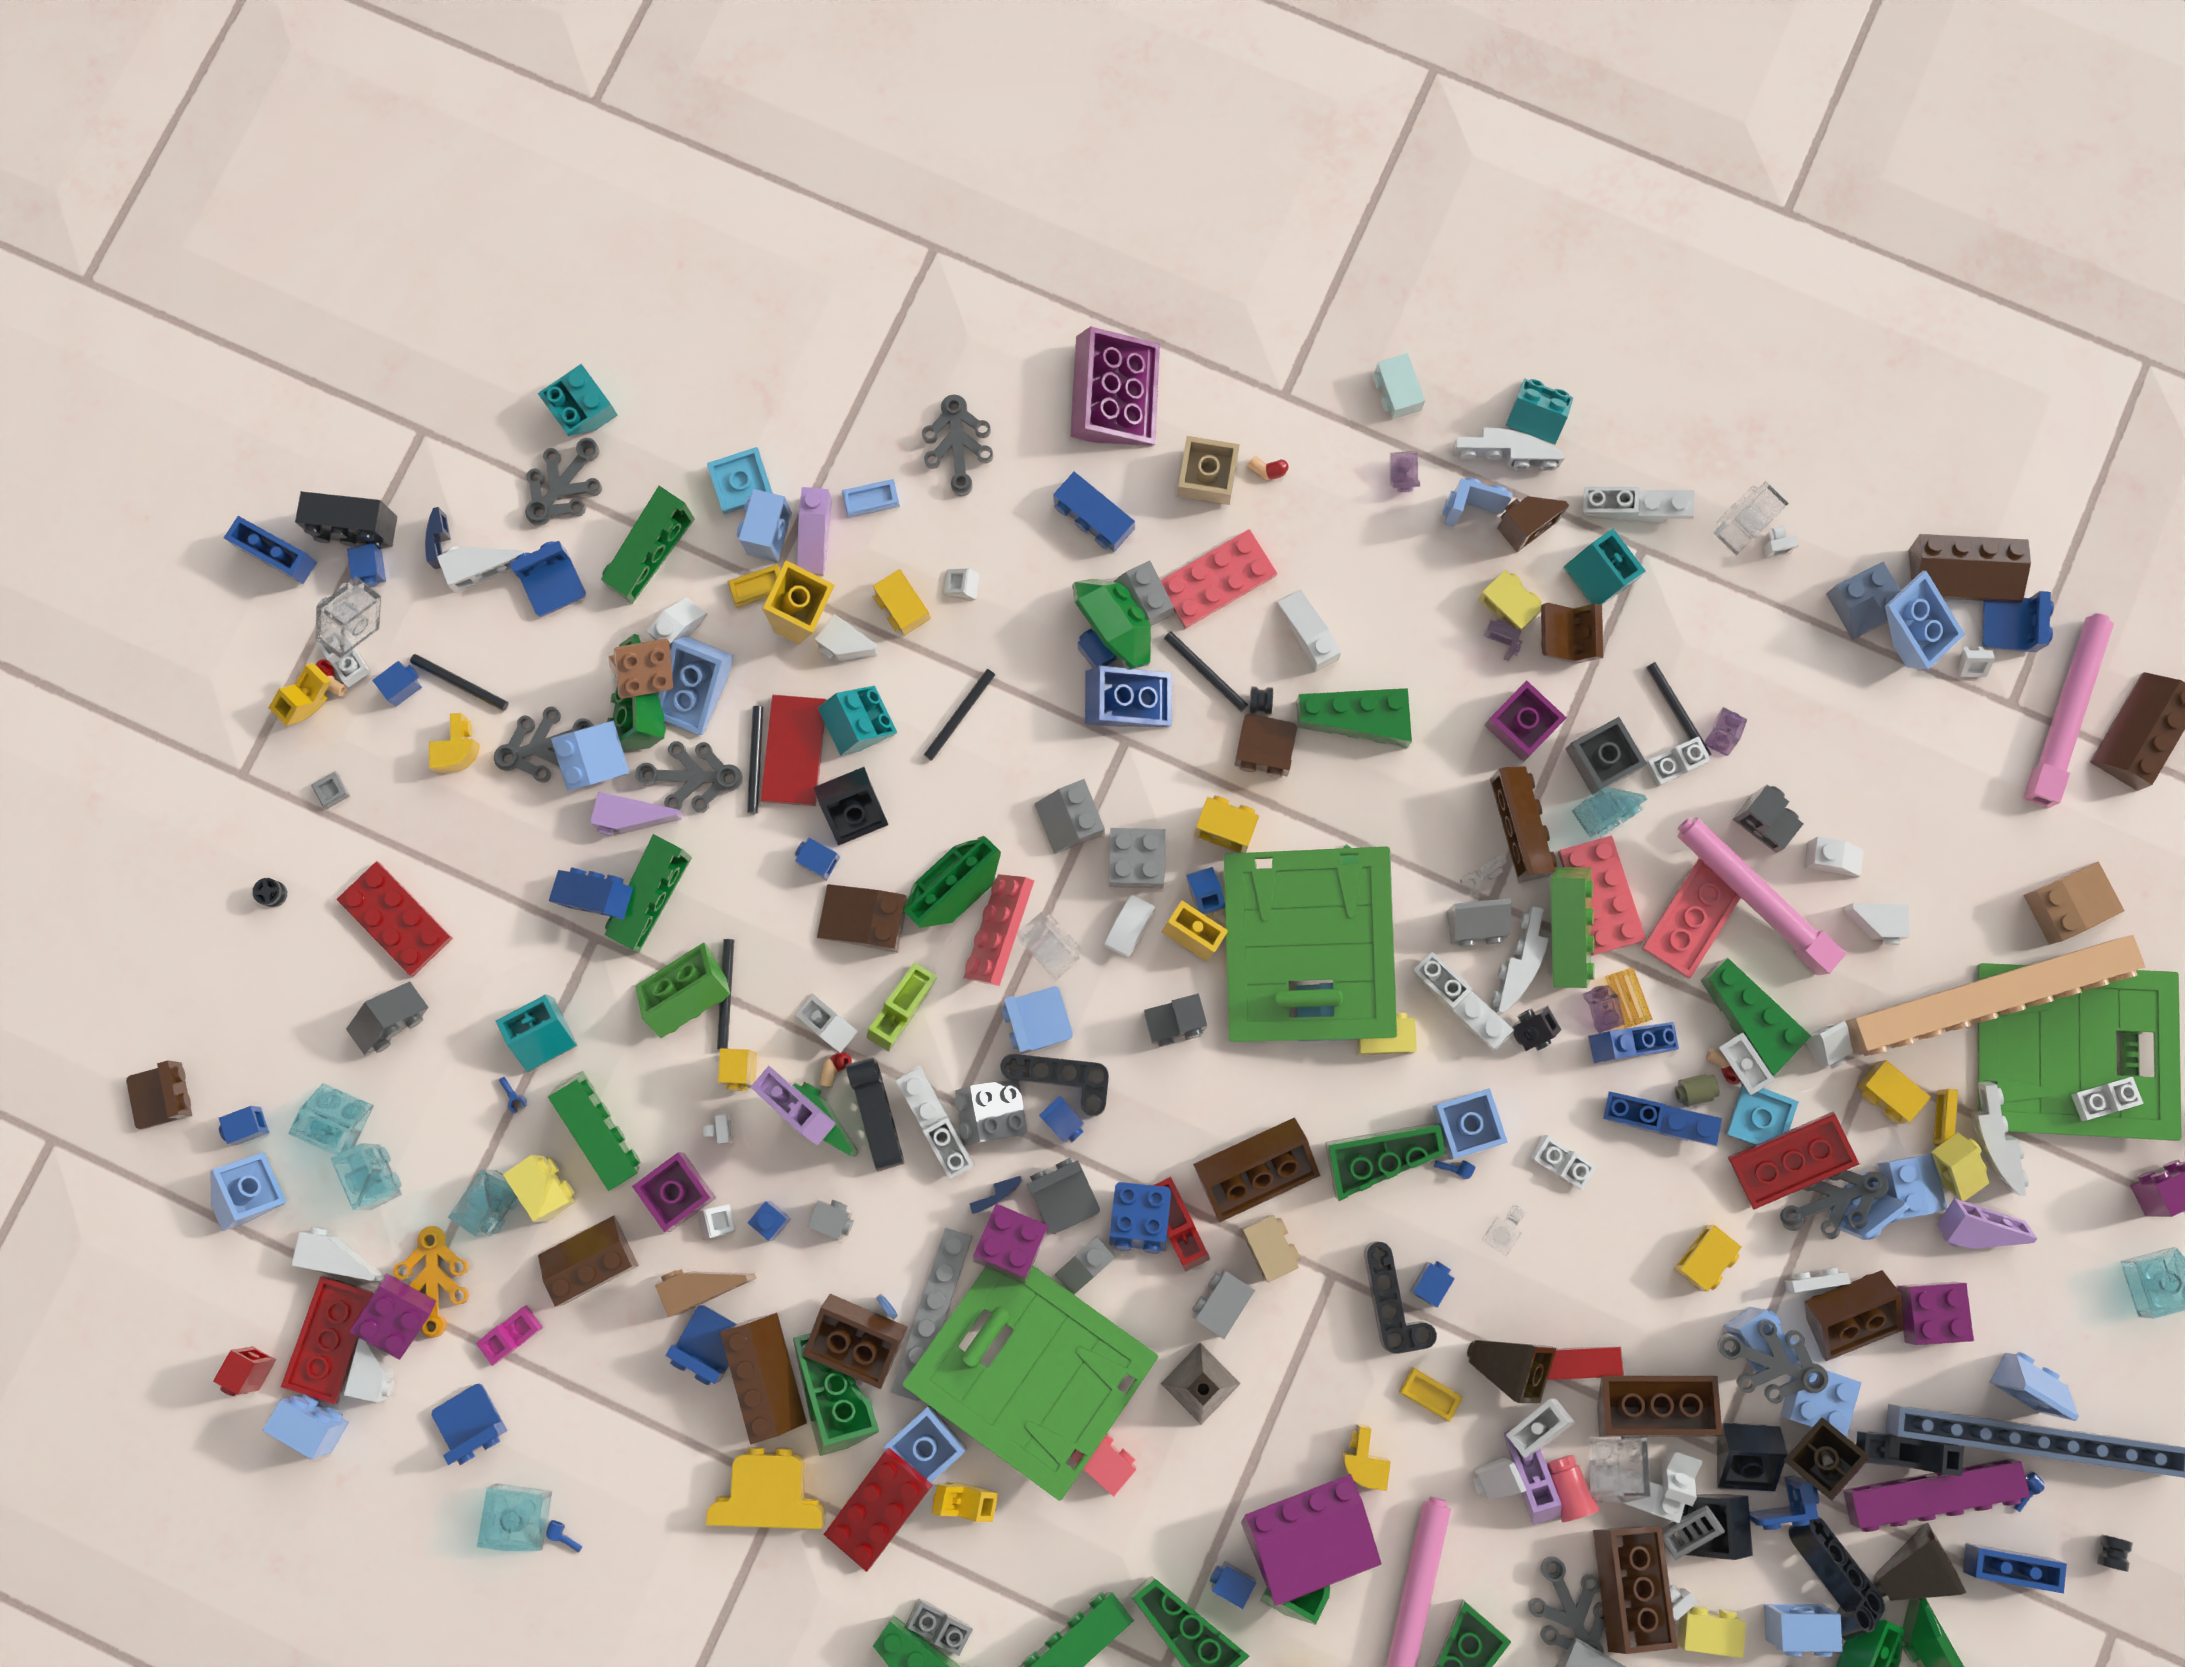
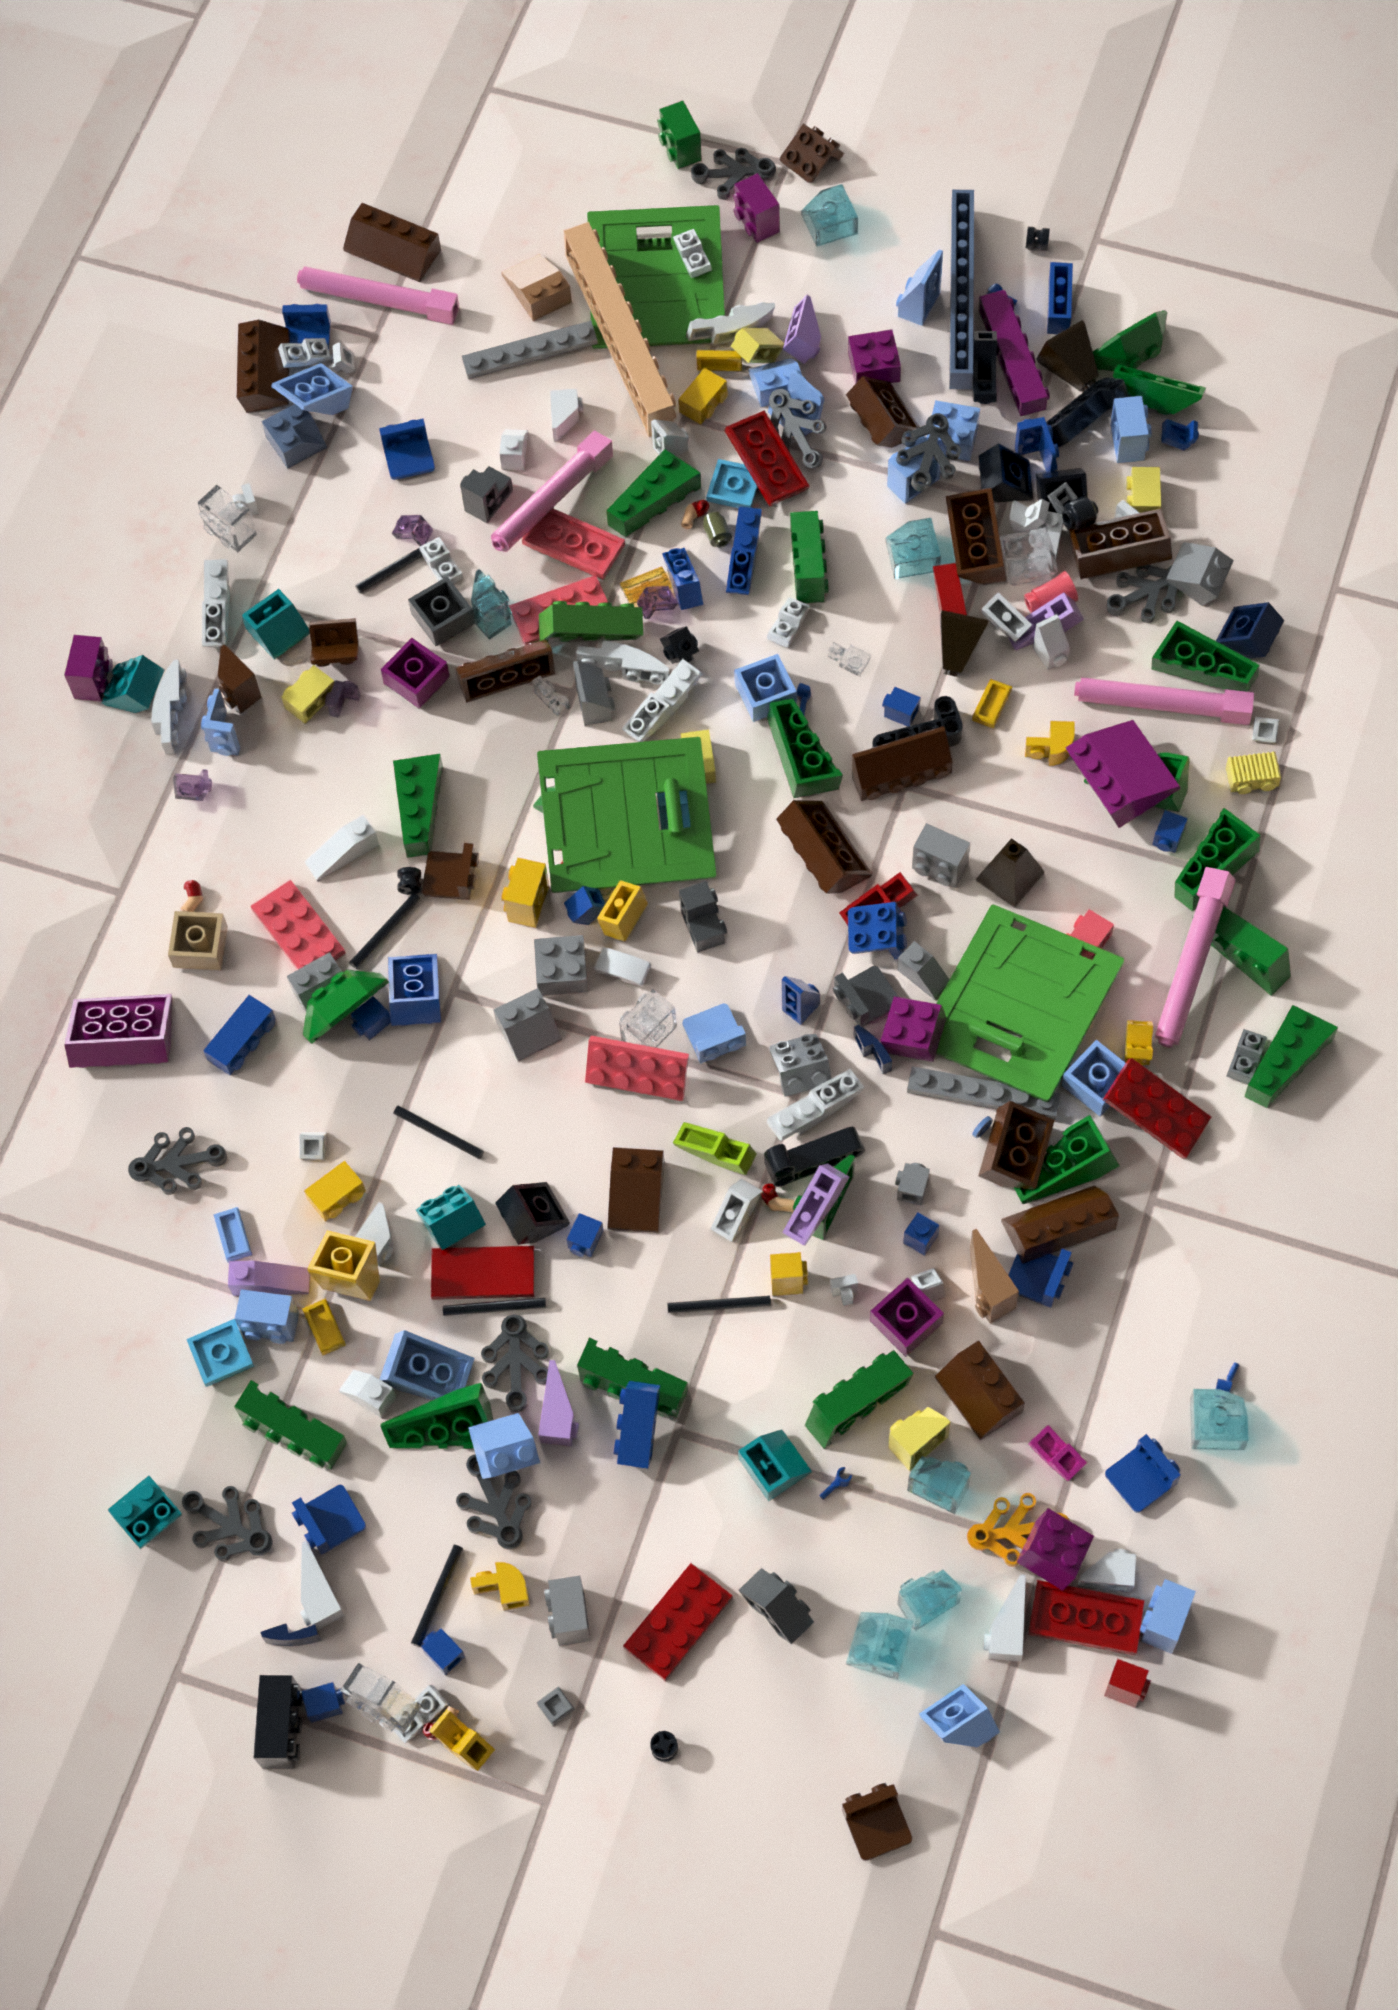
camera: 95 degrees left, 15 degrees down
(243, 1125) = (896, 1733): blue brick -> none
(270, 549) = (312, 1798): blue brick -> none
(410, 807) = (568, 1605): none -> light grey brick
(642, 668) = (416, 1400): nougat bracket -> none
(681, 991) = (719, 1337): bright green slope -> none
(767, 1493) = (1159, 1207): yellow brick -> none
(953, 883) = (594, 1113): green wedge -> none
(1054, 1076) = (761, 1012): black beam -> none
(1123, 1621) = (1214, 895): none -> bright pink brick
(1270, 1247) = (889, 825): tan brick -> none
(1349, 1274) = (901, 764): none -> reddish brown slope
(1399, 386) = (112, 796): light aqua brick -> none
(1561, 360) = (88, 668): none -> magenta brick
(1650, 1195) = (807, 556): none -> green wedge
(1651, 1326) = (913, 549): none -> clear light blue slope
(1675, 1543) = (1080, 513): none -> black head
(1708, 1258) = (852, 513): yellow brick -> none
(1746, 1063) = (692, 493): white plate -> none
(1826, 1459) = (998, 412): dark brown slope -> none
(1828, 1278) = (862, 445): white plate -> none
(1837, 731) = (407, 449): none -> blue bracket
(1976, 887) = (529, 349): none -> light grey plate
(1984, 617) = (303, 354): none -> white slope

